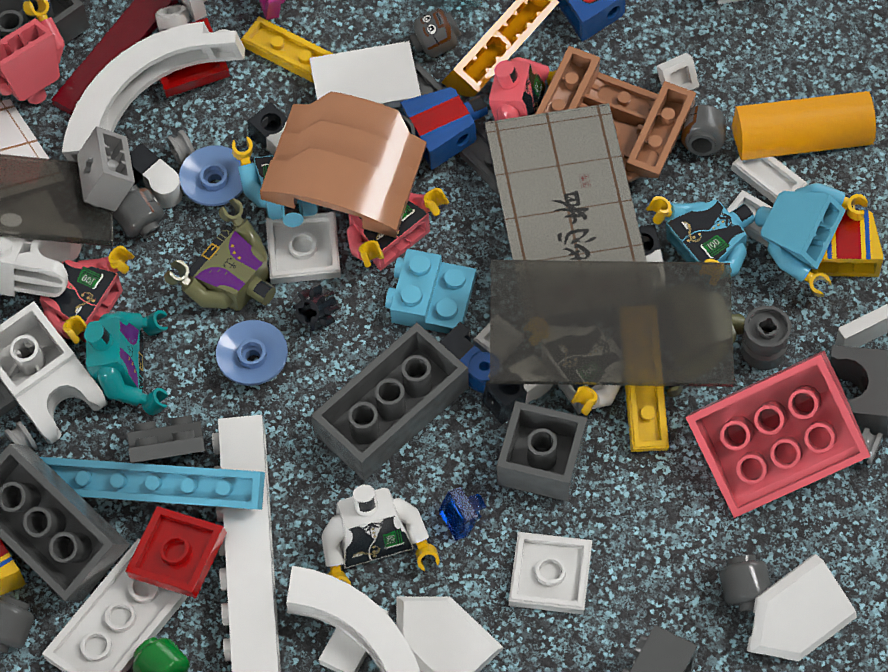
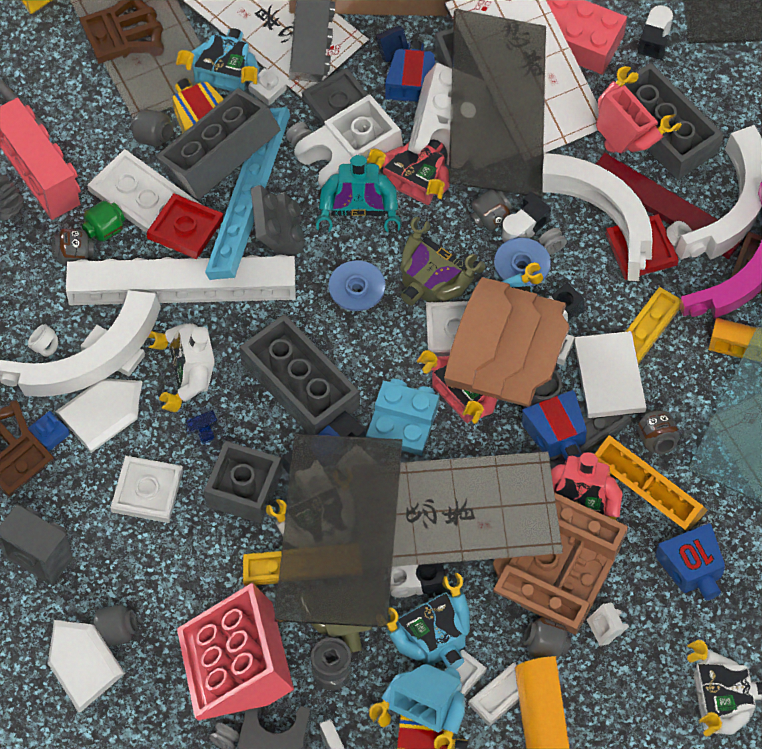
camera: 90 degrees right, 0 degrees up
(105, 169) = (518, 176): light grey brick -> none
(316, 307) = (392, 330): black gear -> none

